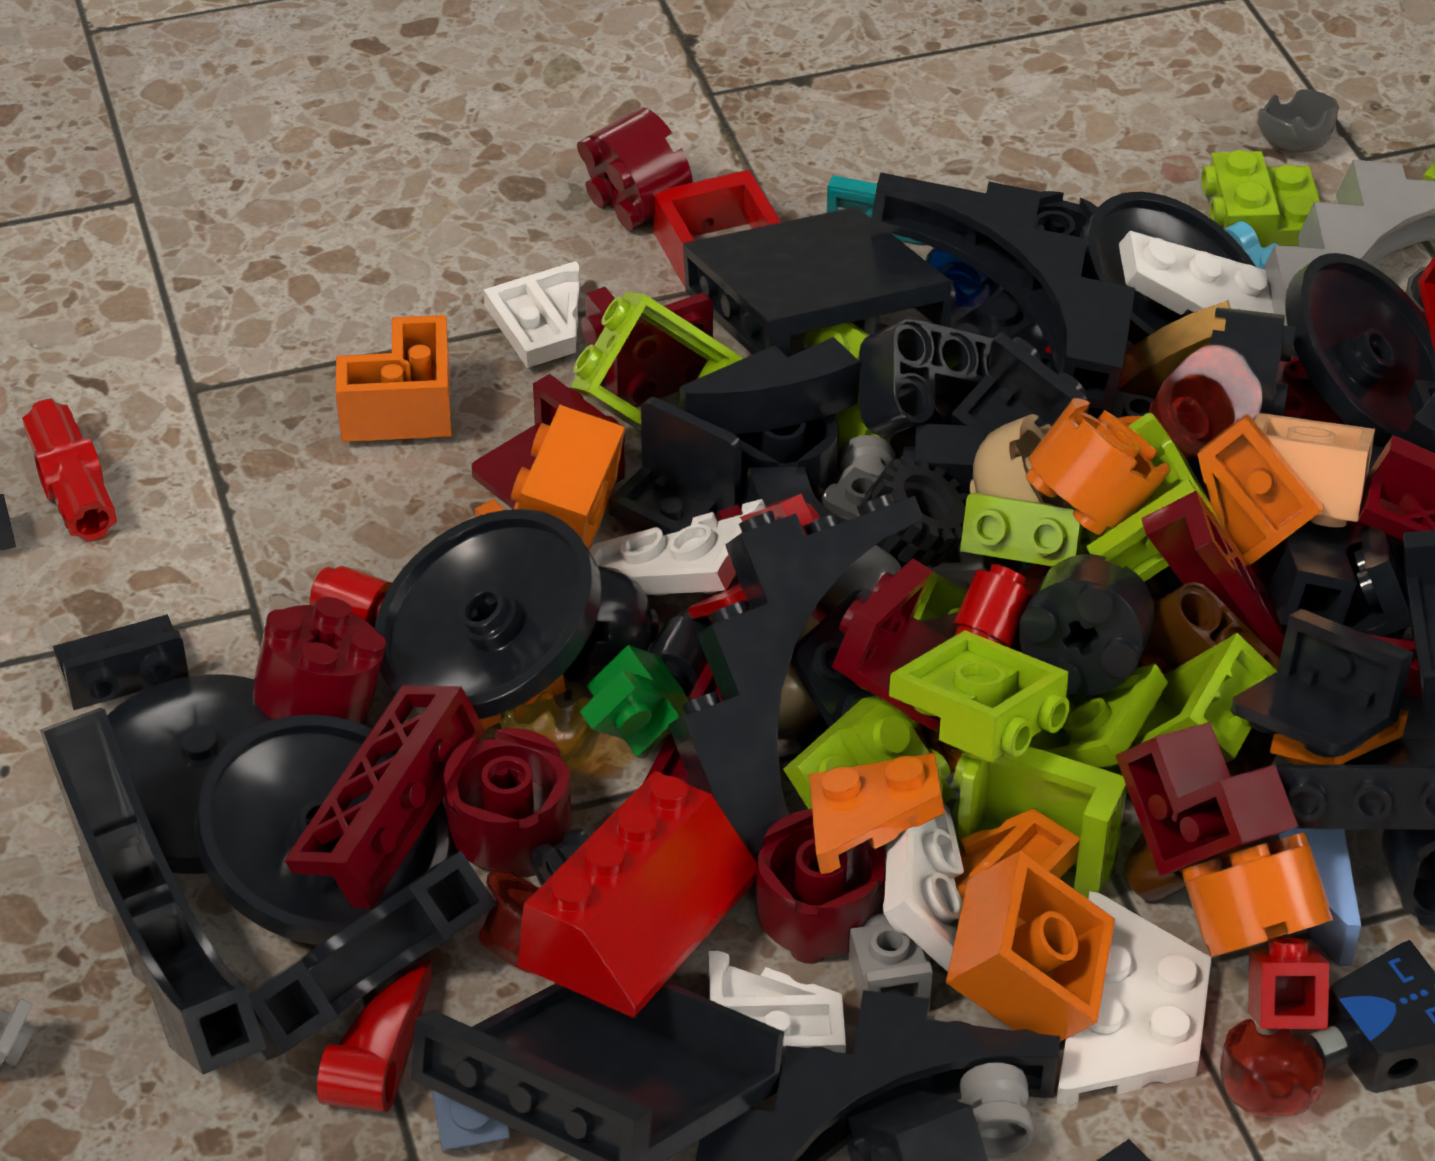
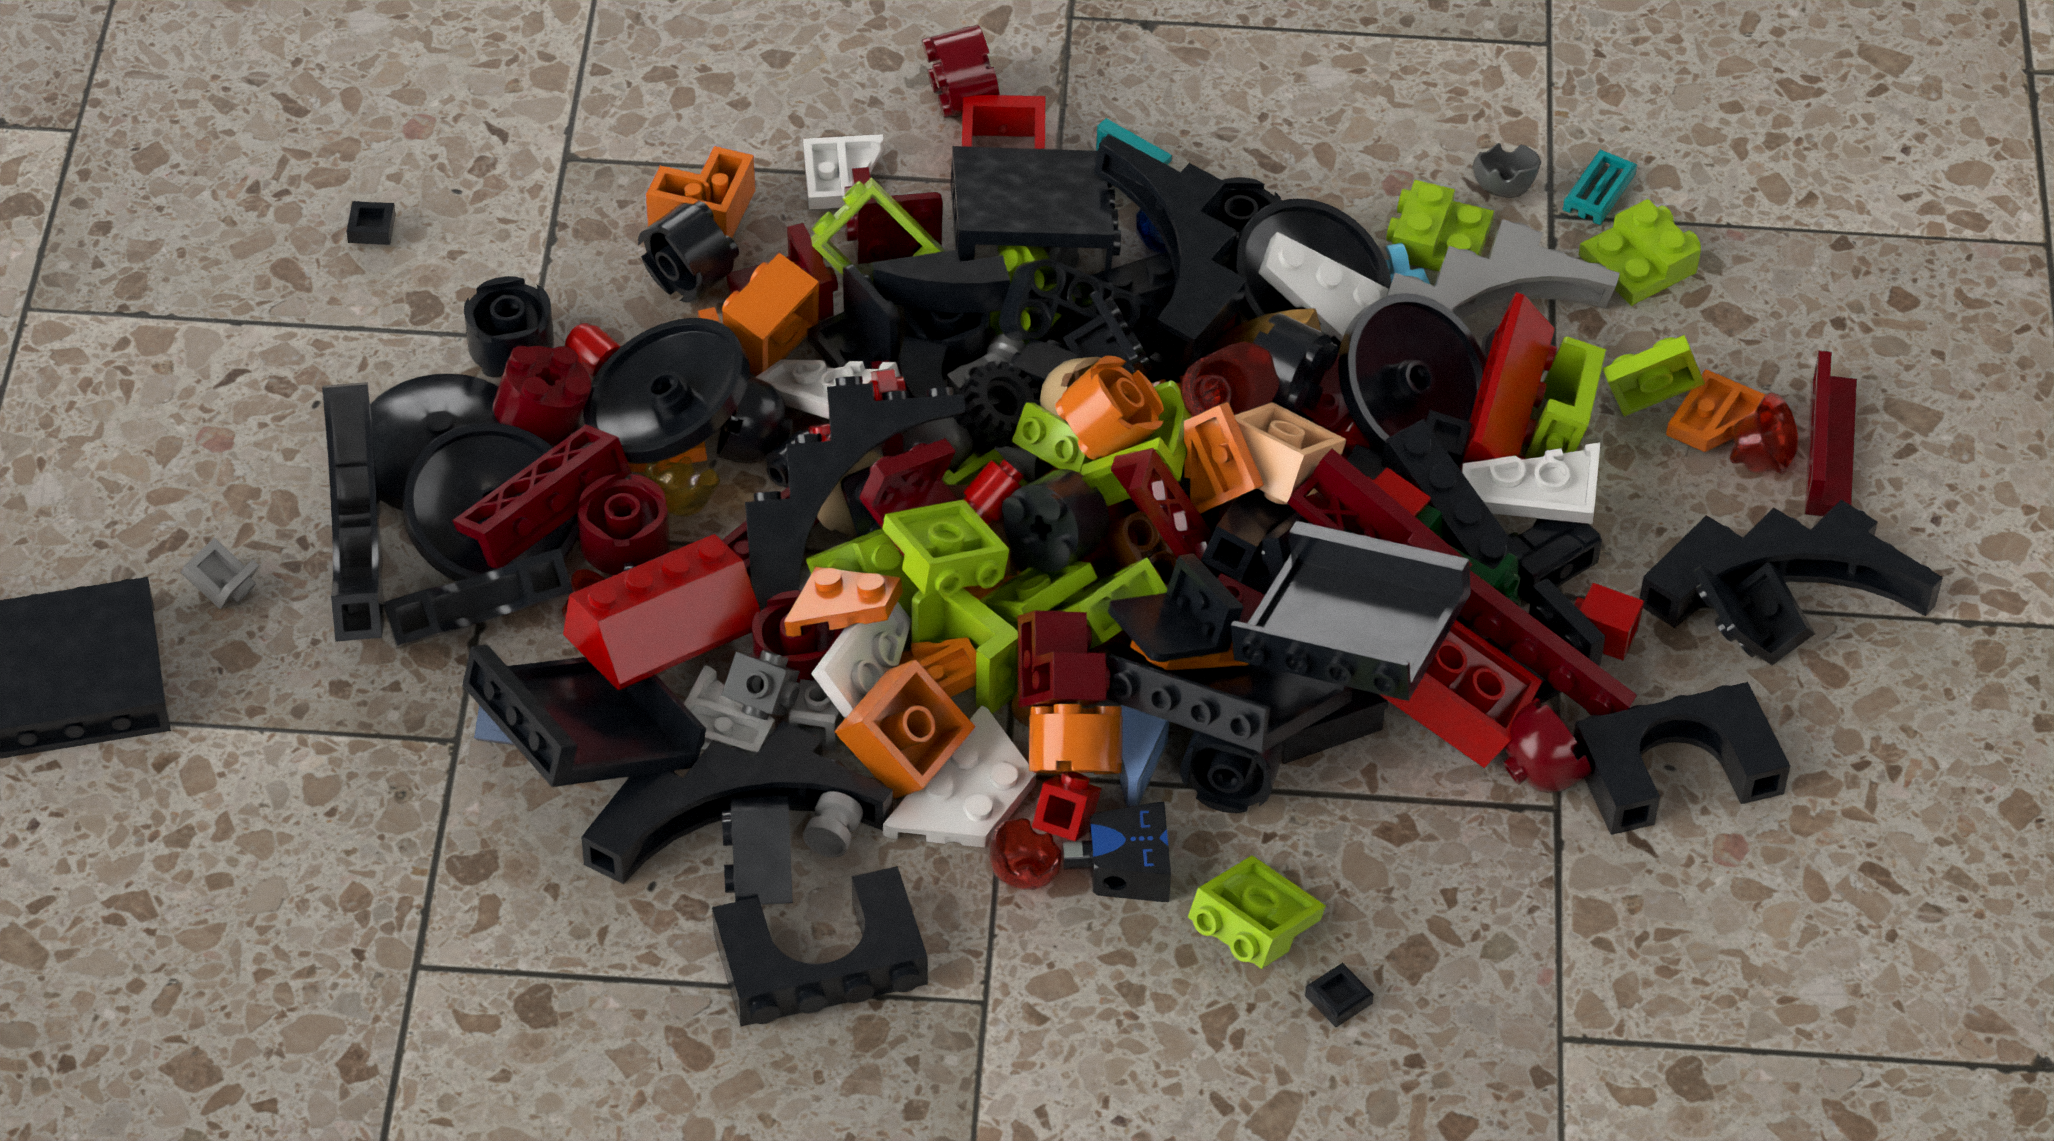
camera: 20 degrees right, 5 degrees up
(69, 470) = (447, 197): red piece -> none
(121, 661) = (422, 349): black bracket -> none
(224, 594) = (506, 316): none -> black brick
(375, 1049) = (444, 671): red piece -> none
(417, 446) = (687, 251): none -> black brick
(635, 700) = (736, 478): green brick -> none
(790, 946) = (762, 684): none -> dark grey brick
(1397, 136) = (1588, 206): none -> teal tile

